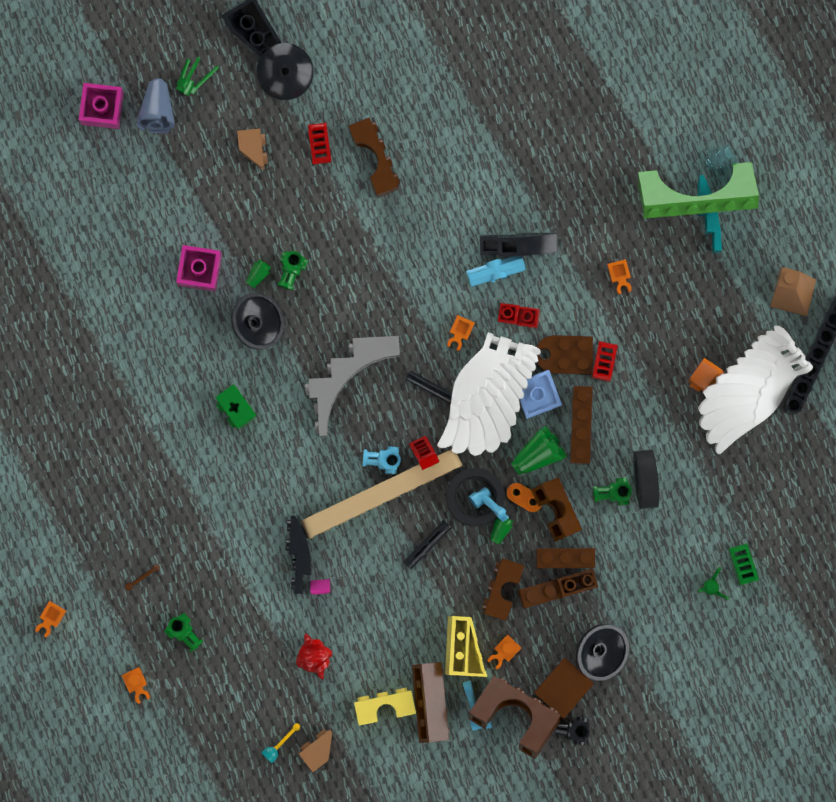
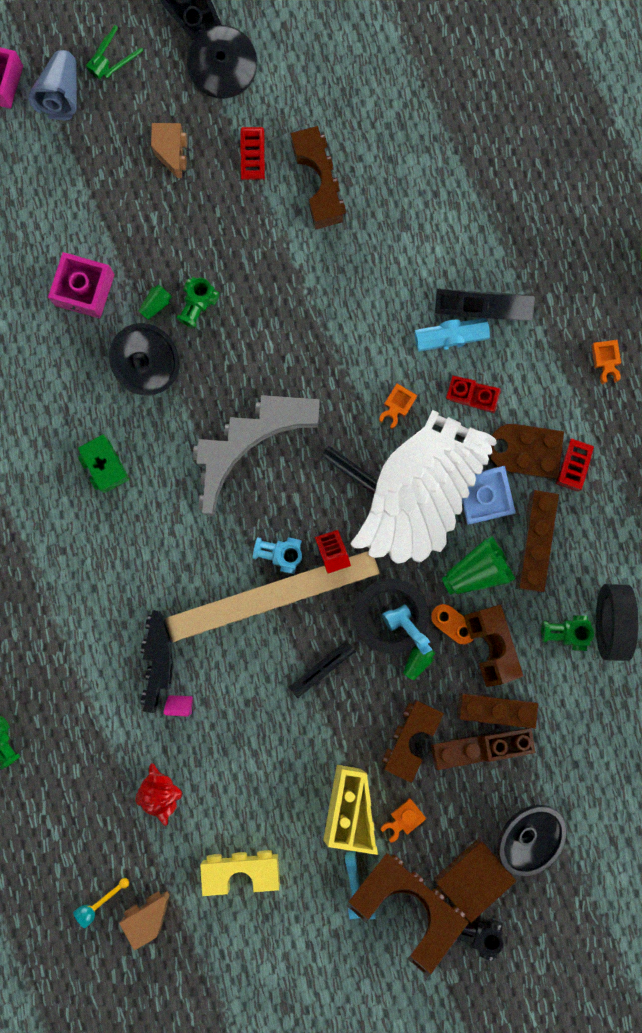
camera: 15 degrees right, 0 degrees up
(430, 702) = (299, 877): brick -> none

